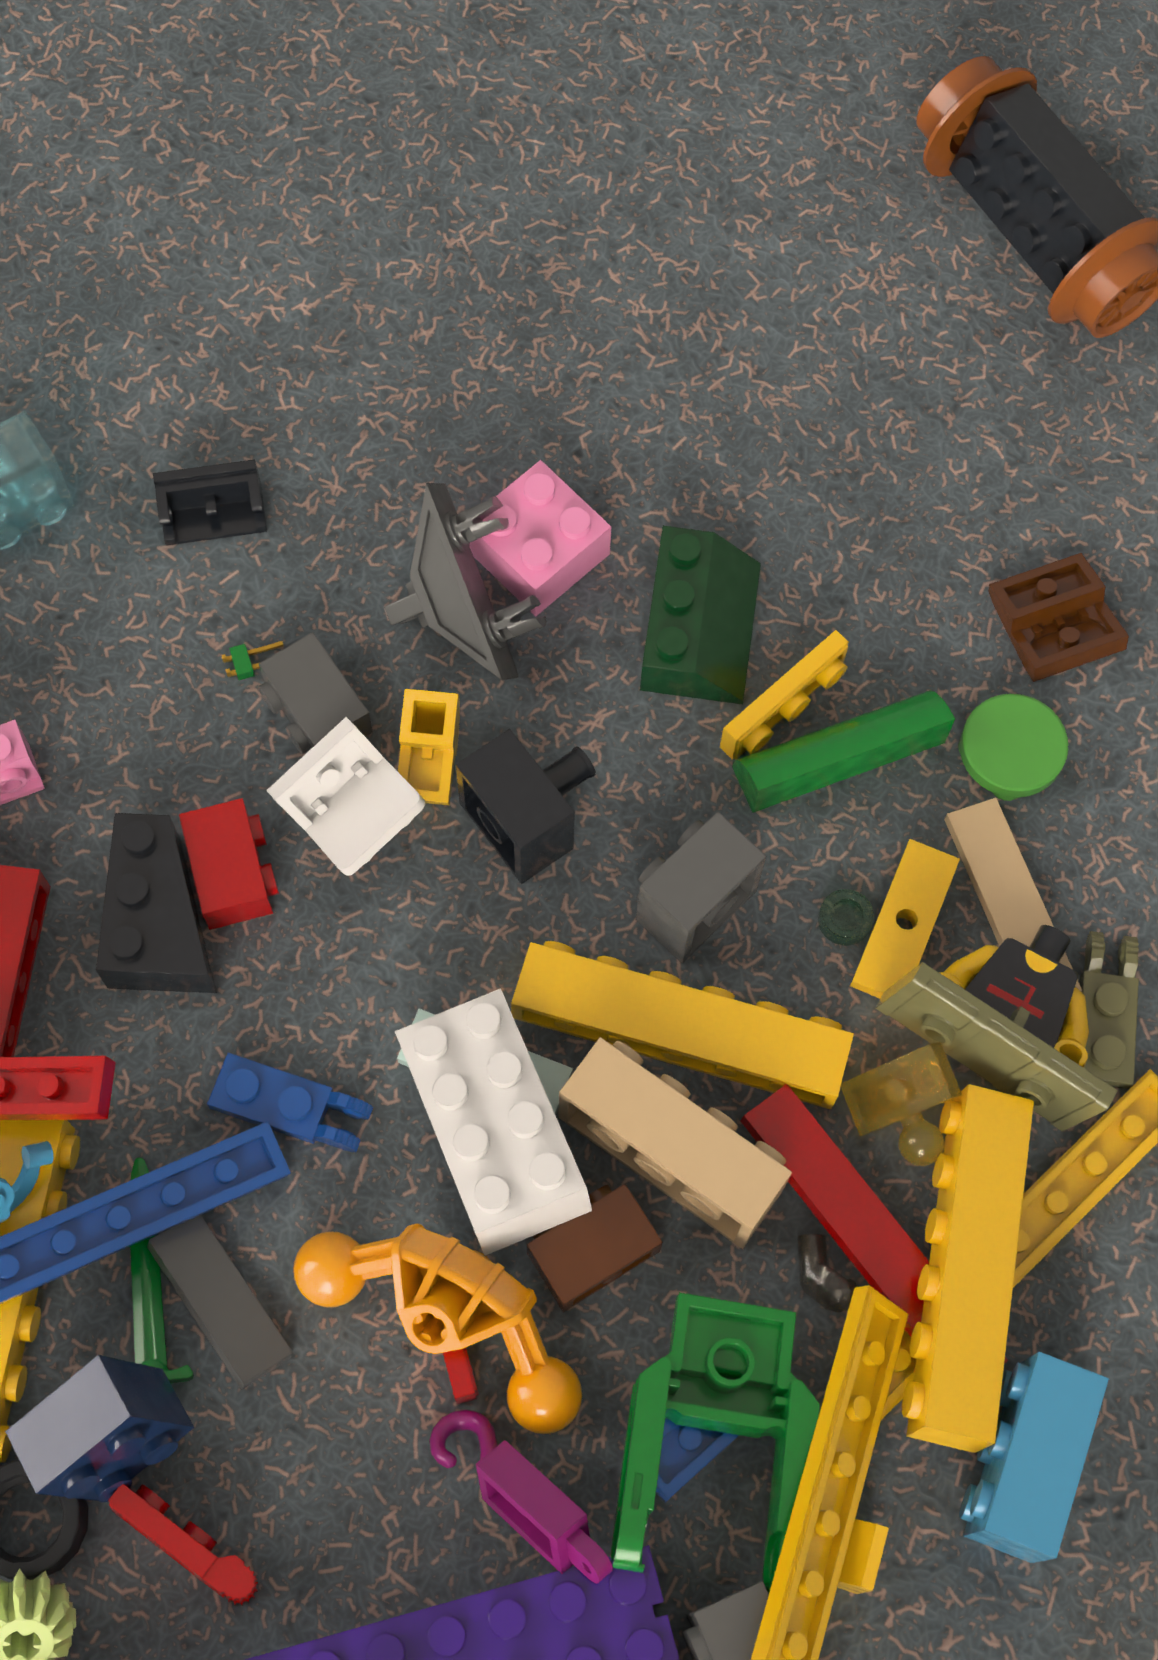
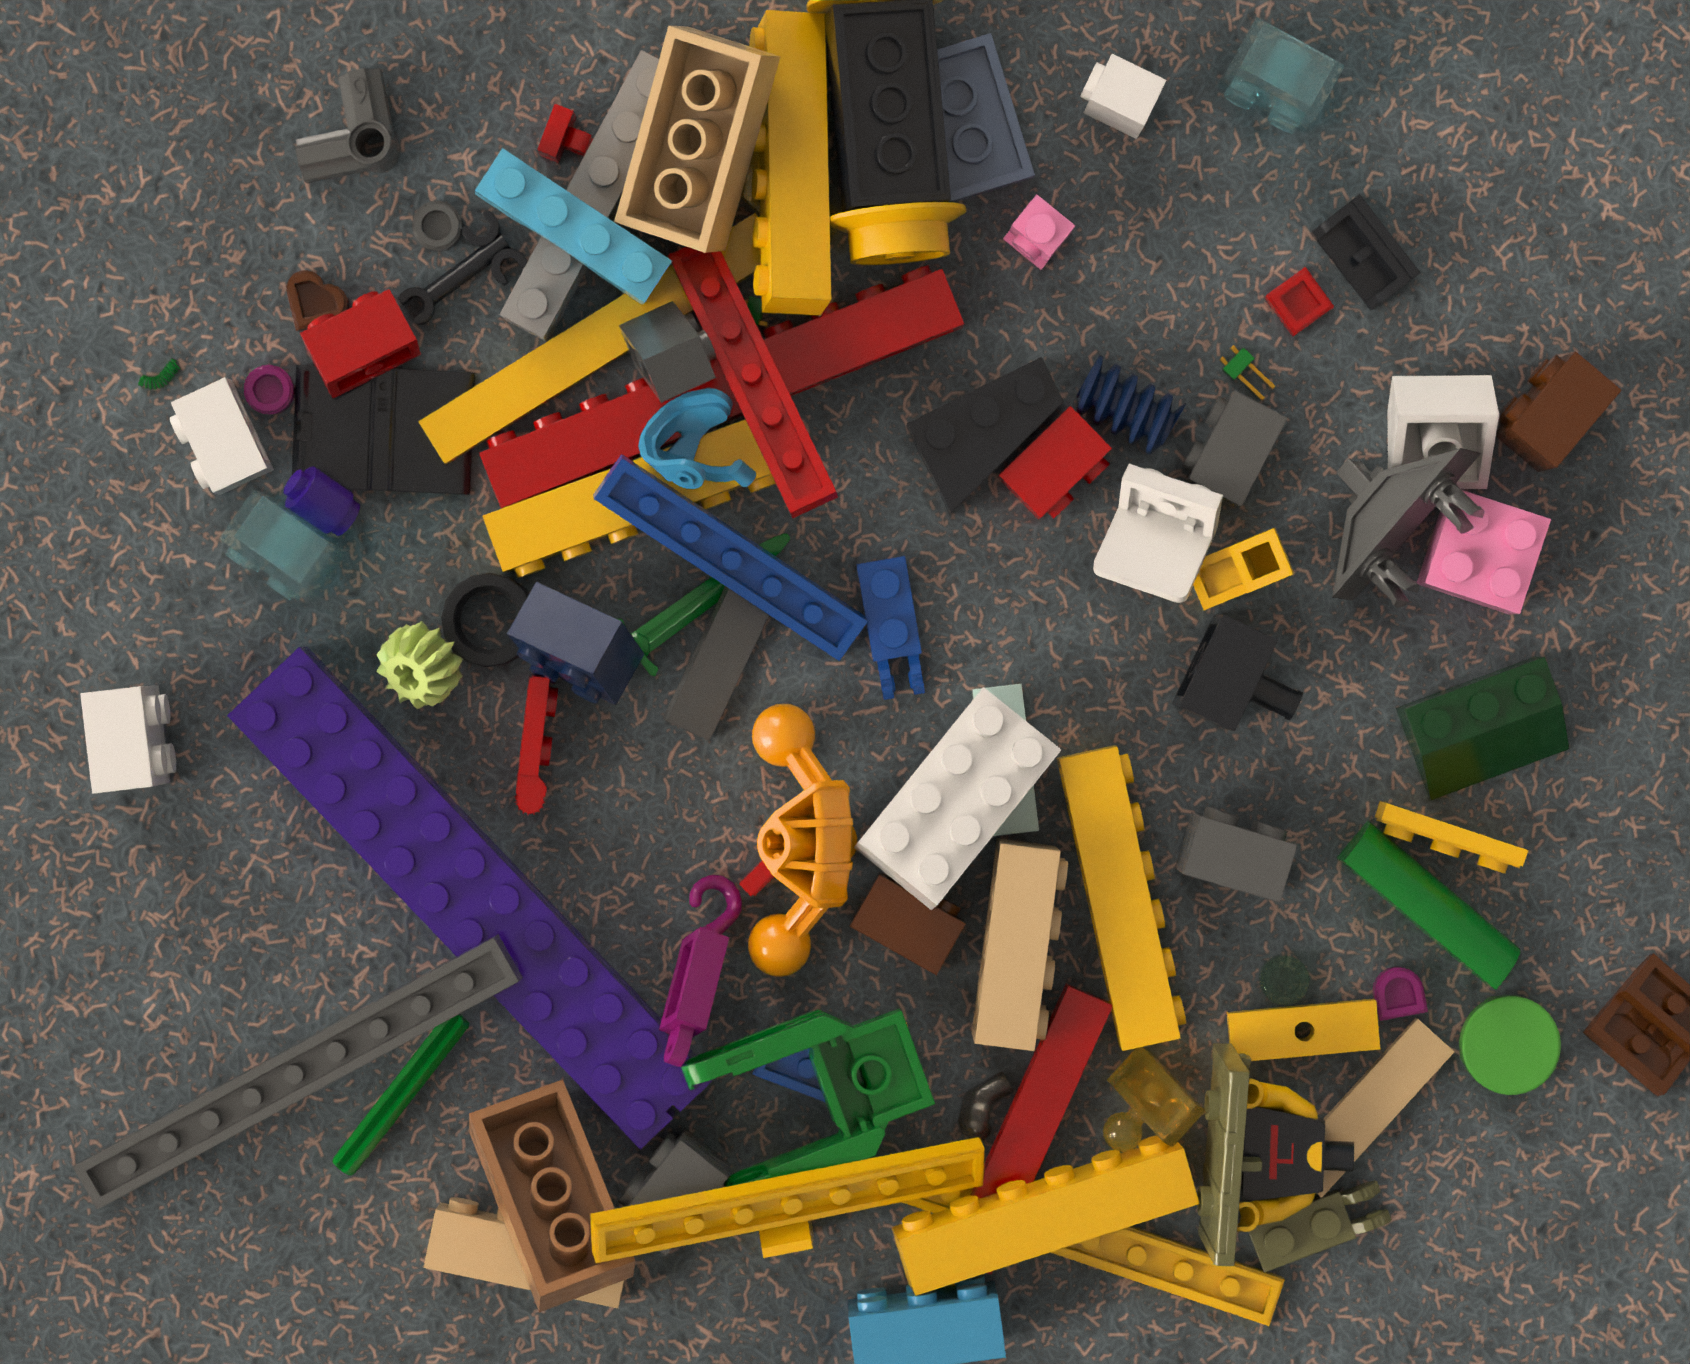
camera: 65 degrees right, 20 degrees up
(214, 768) = (1127, 405): none -> dark blue piece
(219, 583) = (1299, 301): none -> red tile
(387, 511) = (1440, 416): none -> white slope
(446, 412) = (1556, 411): none -> reddish brown brick
(913, 818) = (1398, 993): none -> magenta tile

